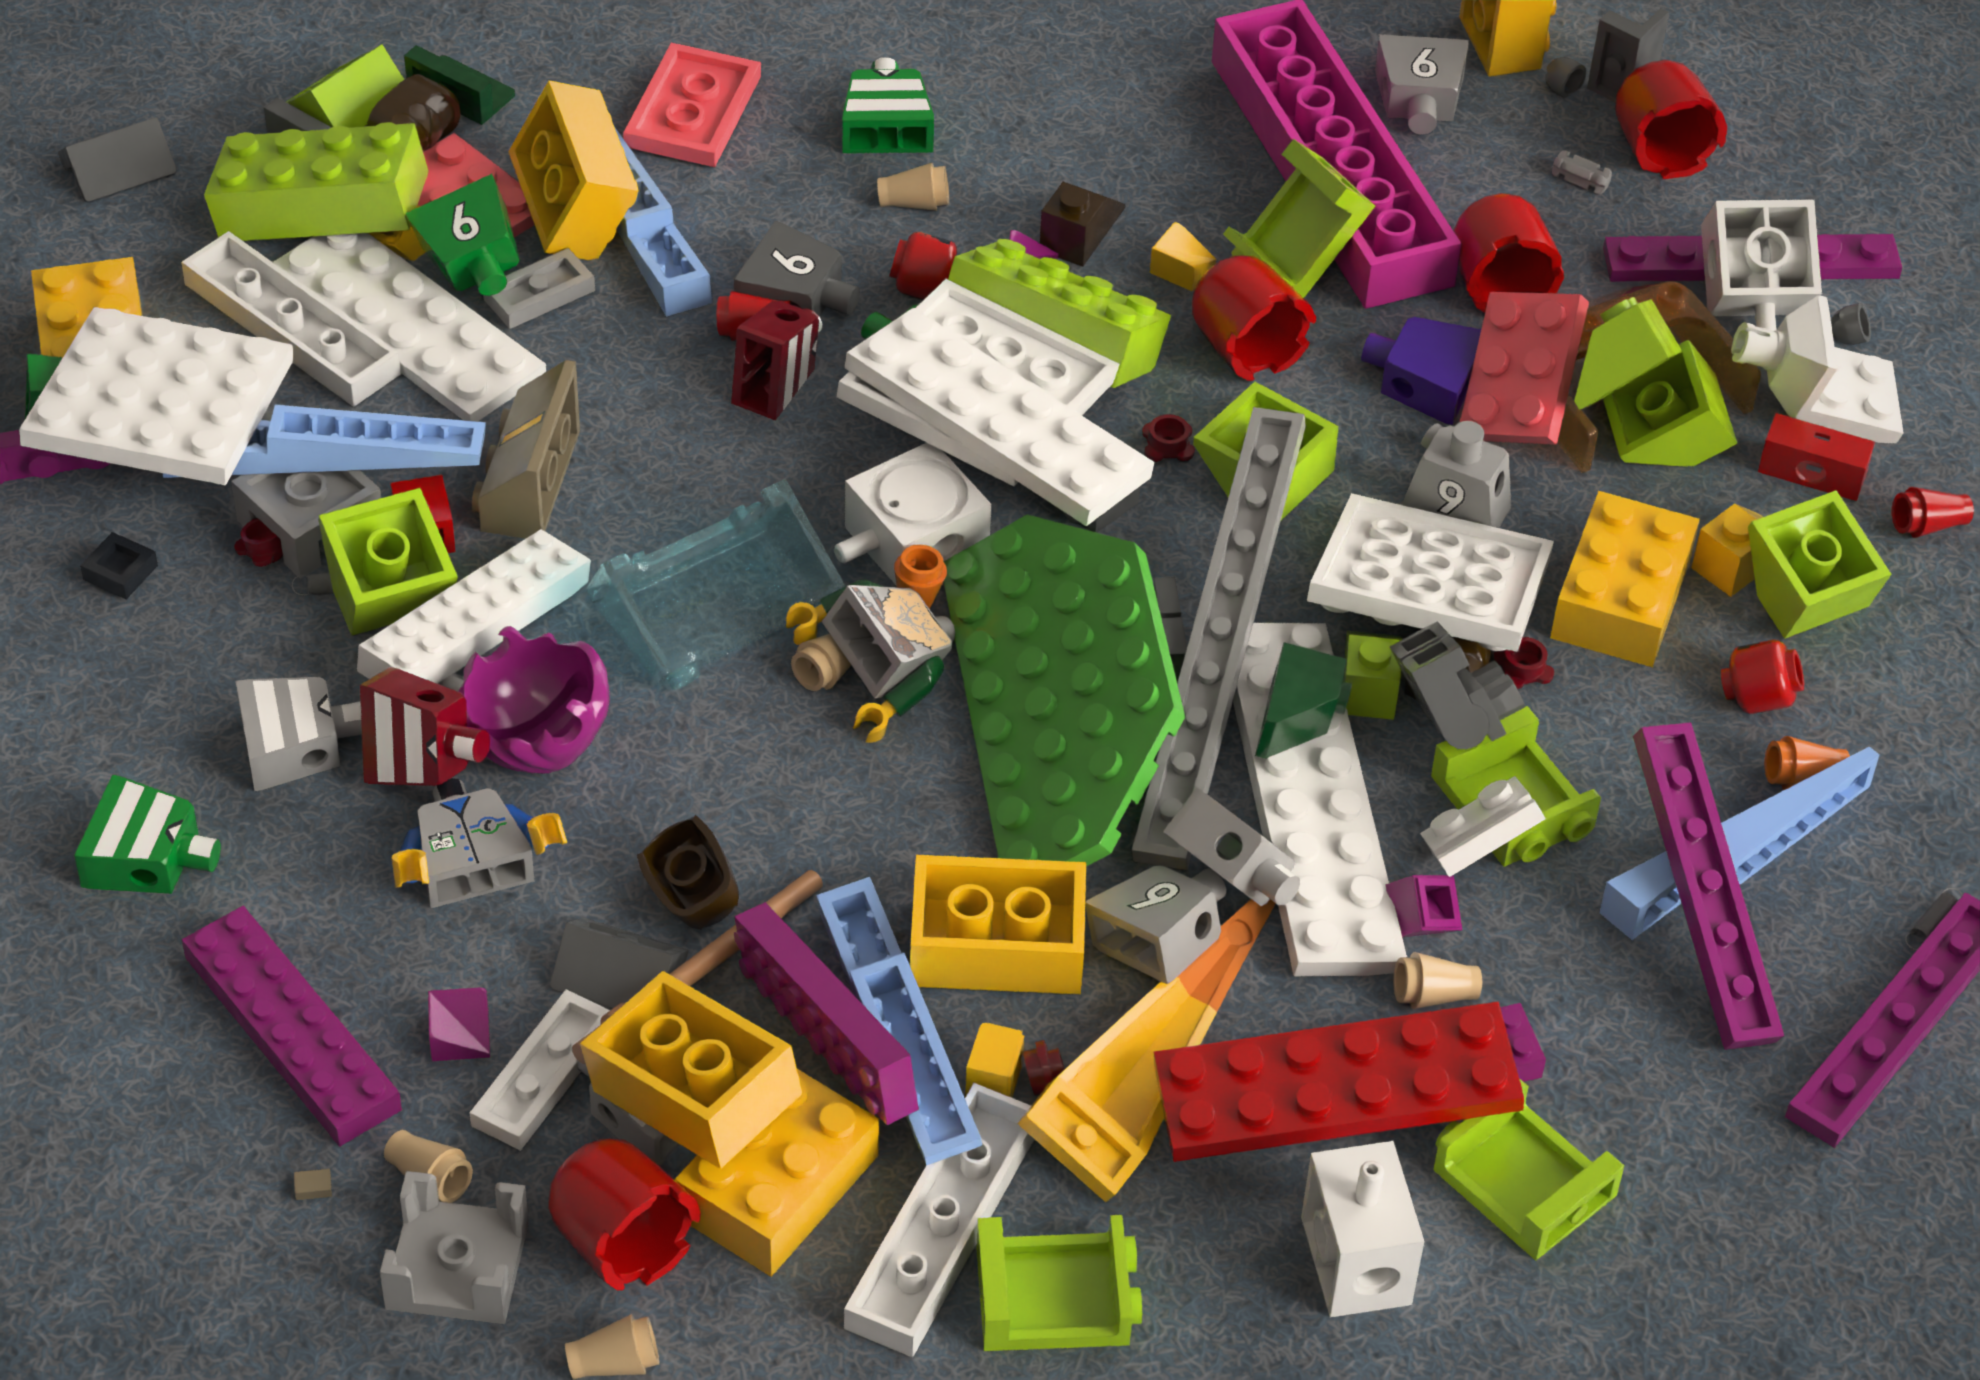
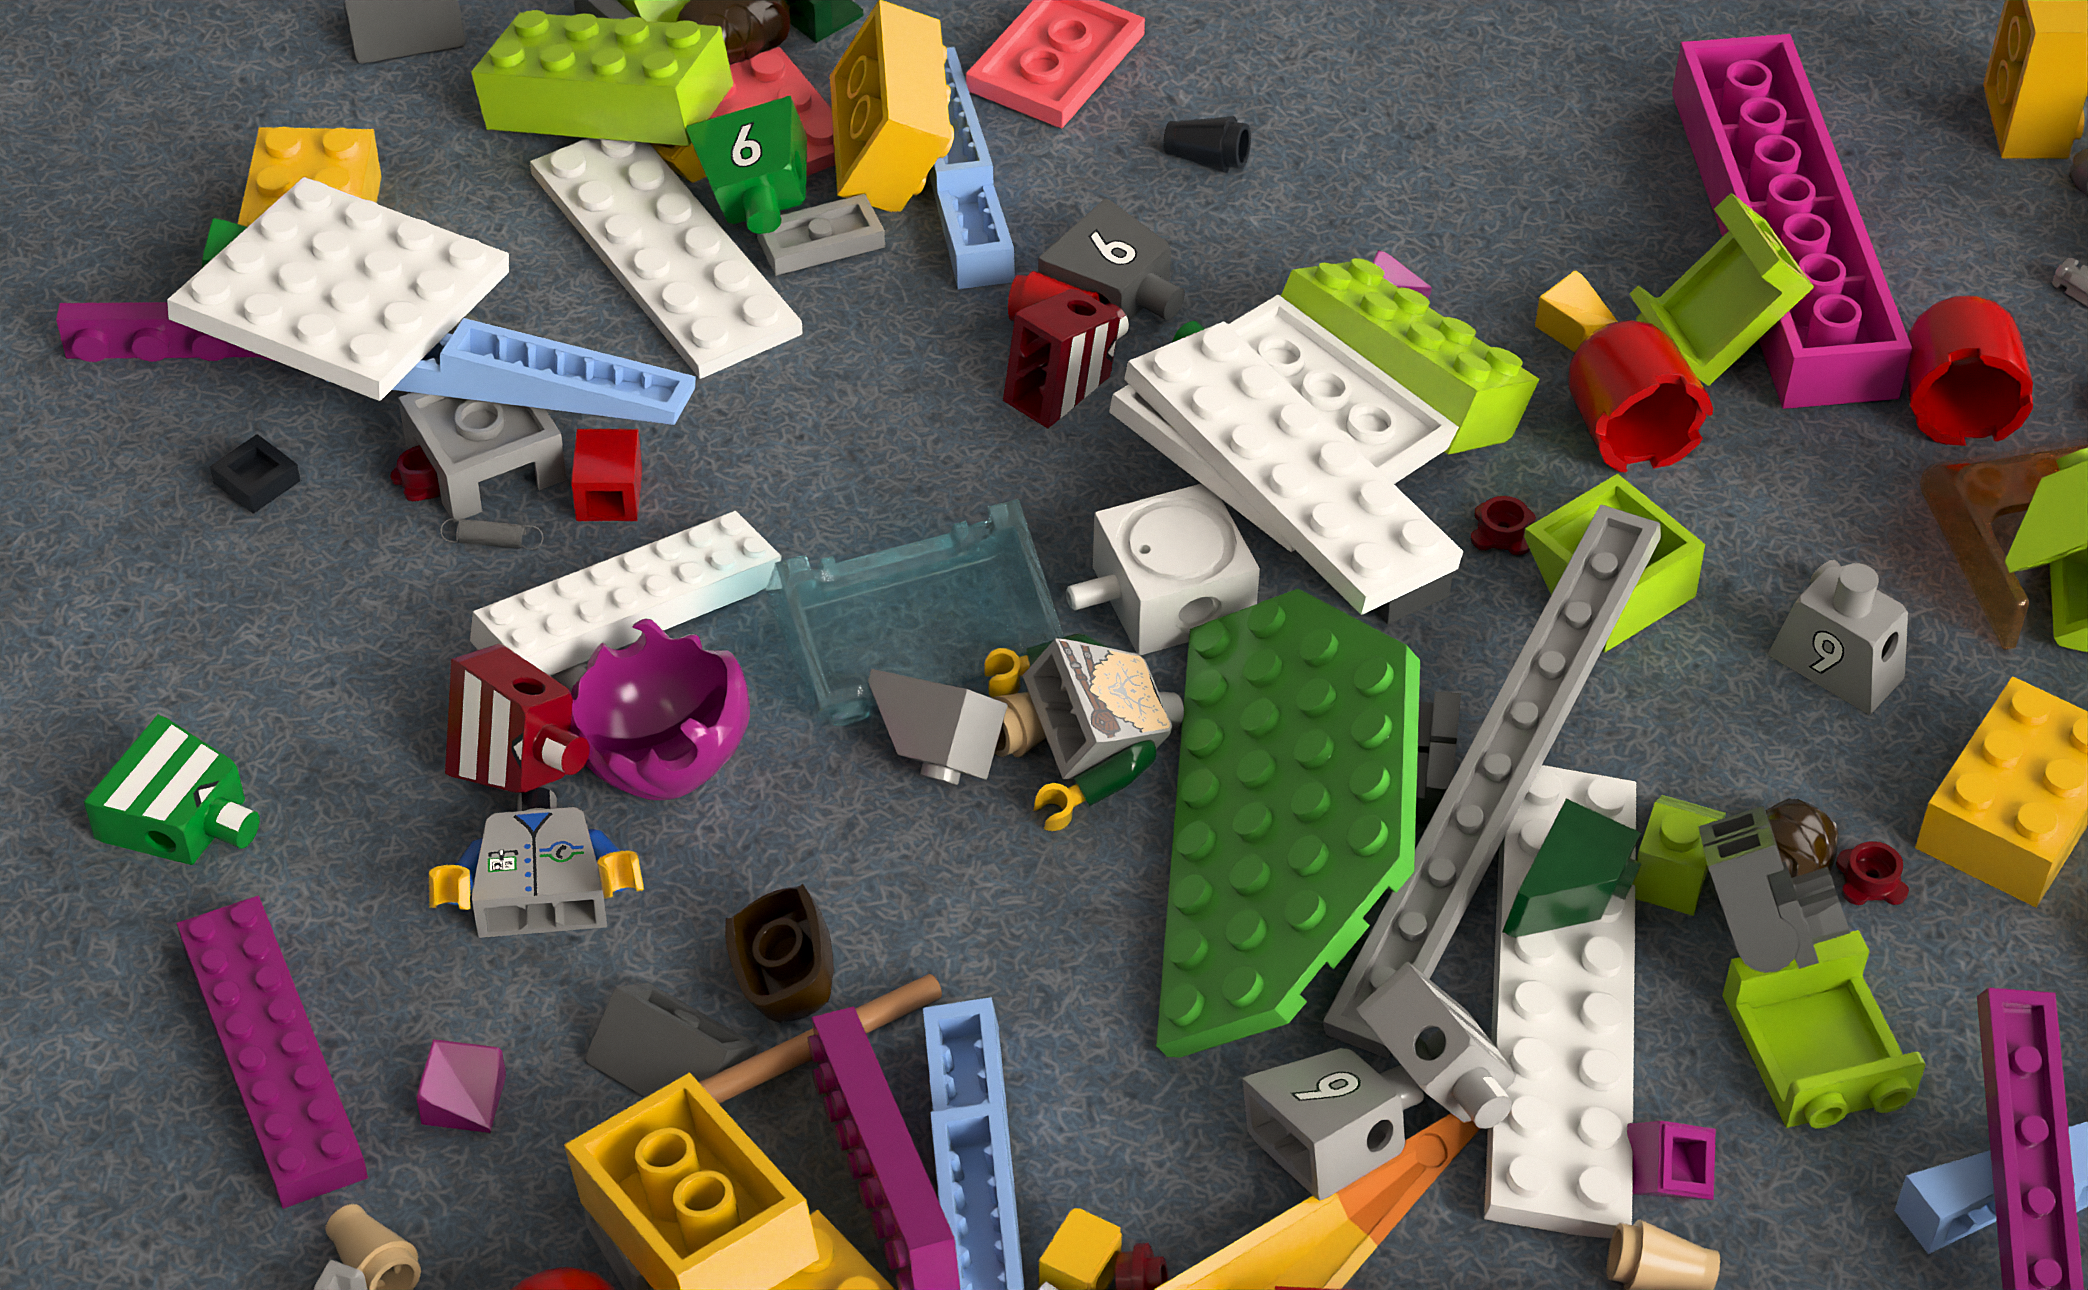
camera: 15 degrees right, 0 degrees up
(286, 311) = (535, 226): white piece -> none
(292, 728) = (378, 695): light grey torso -> none
(313, 1184) = (235, 1249): dark tan piece -> none
(384, 559) = (541, 514): lime slope -> none
(530, 455) = (749, 424): dark tan slope -> none
(537, 1073) = (529, 1167): white plate -> none
(763, 672) = (939, 725): none -> light grey slope
(843, 160) = (1209, 141): none -> black cone
(887, 111) = (1275, 91): green torso -> none
(915, 188) = (1284, 186): tan cone -> none
(921, 570) = (1157, 636): orange cone -> none
(922, 264) = (1261, 270): red head -> none
(998, 924) = (1130, 1086): yellow brick -> none
(1077, 222) = (1461, 252): dark brown slope -> none
(1420, 78) = (1917, 148): light grey torso -> none
(1426, 365) = (1843, 488): dark purple torso -> none
(1431, 569) = (1779, 738): white plate -> none
(1493, 819) = (1764, 1073): white plate -> none
(1524, 365) = (1955, 509): coral plate -> none

